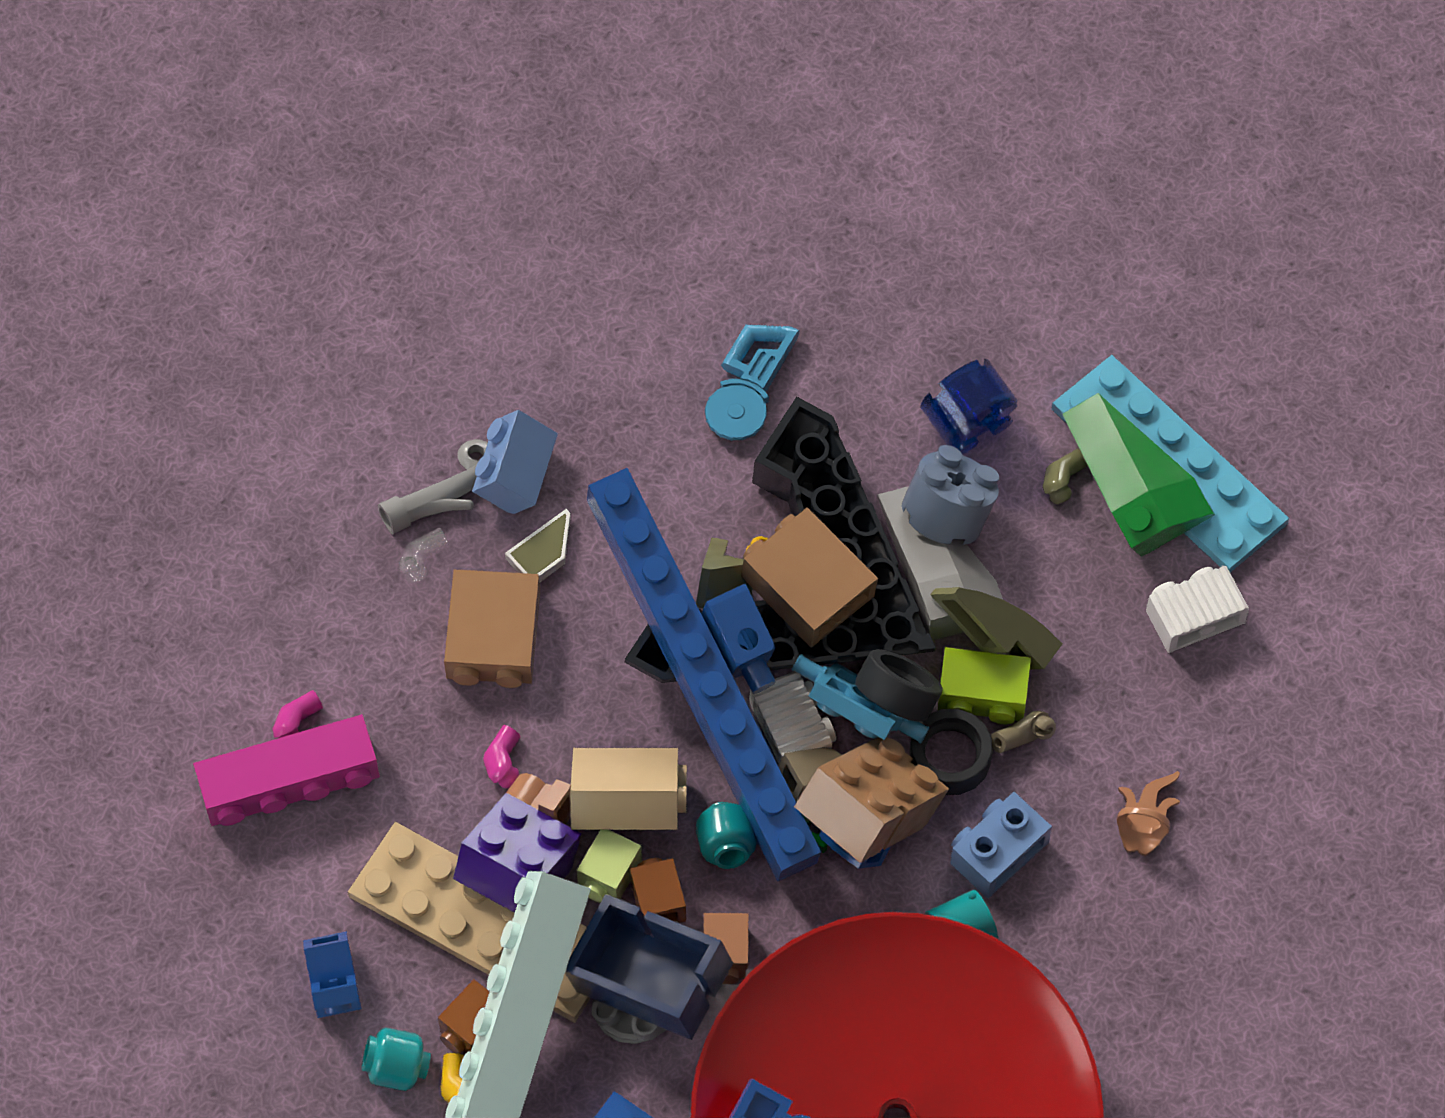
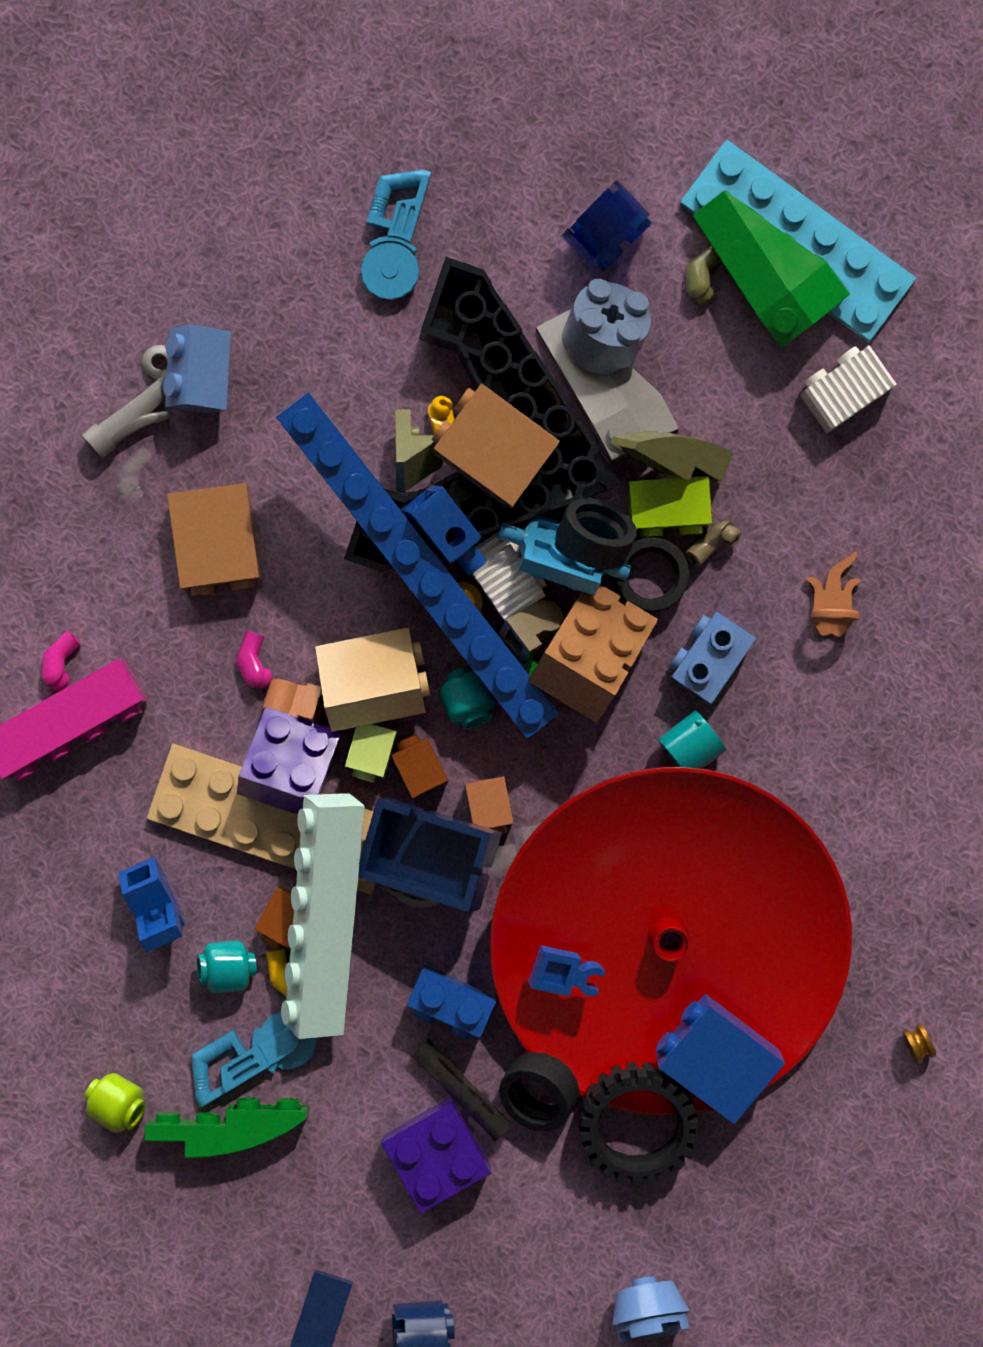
camera: 15 degrees left, 25 degrees up
(542, 550) = (243, 447): olive tile -> none

